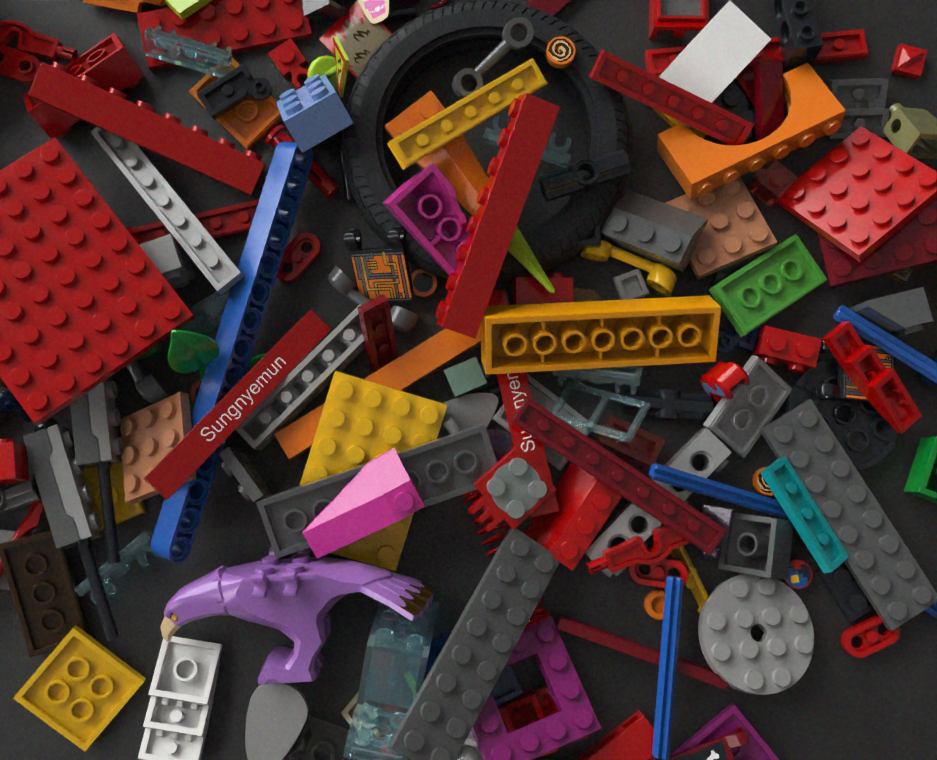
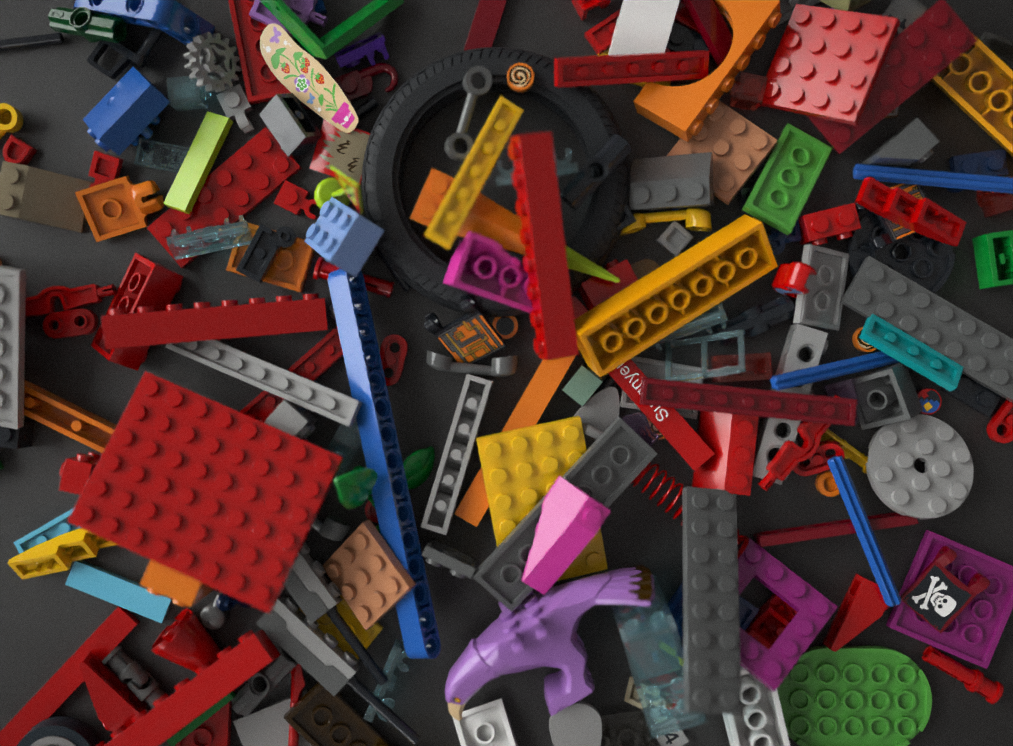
camera: 25 degrees left, 5 degrees up
(236, 405) = (415, 507): red tile -> none
(378, 332) = (495, 389): dark red tile -> none
(510, 490) = (668, 459): piece -> none

